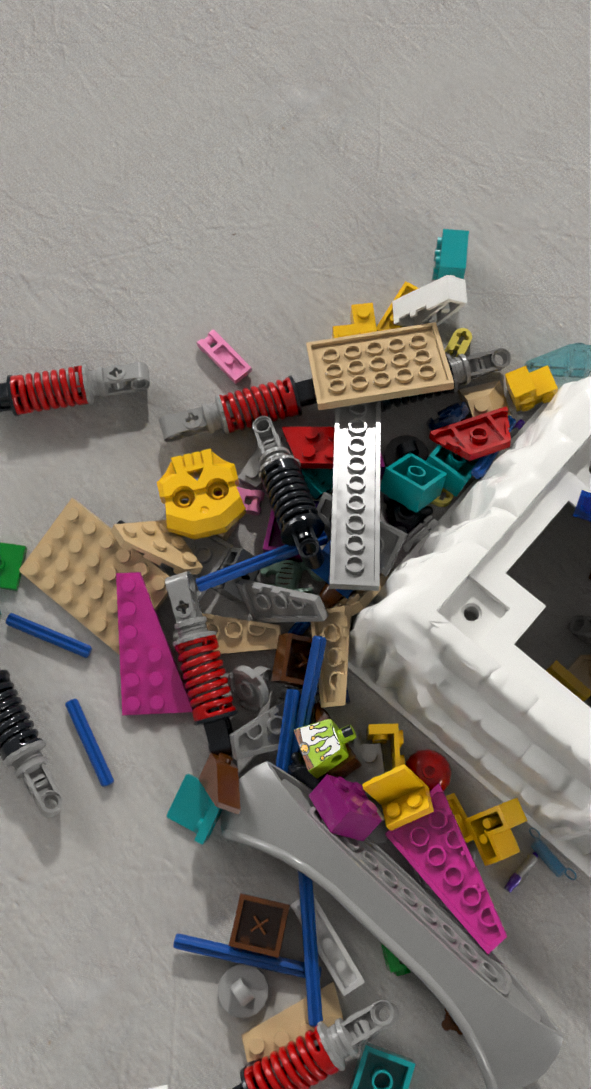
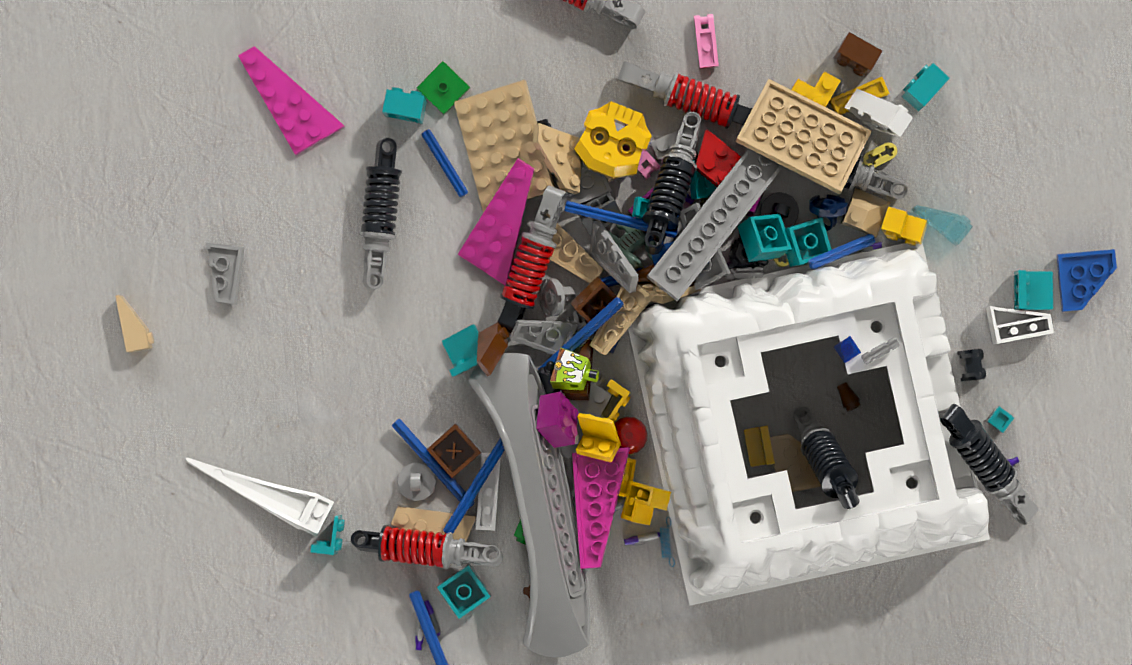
camera: 35 degrees right, 15 degrees up
(89, 742) = (424, 255): blue axle -> none
(272, 535) = (639, 207): none -> teal plate
(287, 729) = (557, 343): blue axle -> none
(370, 272) = (857, 55): none -> reddish brown brick
(476, 435) = (833, 236): red wing -> none

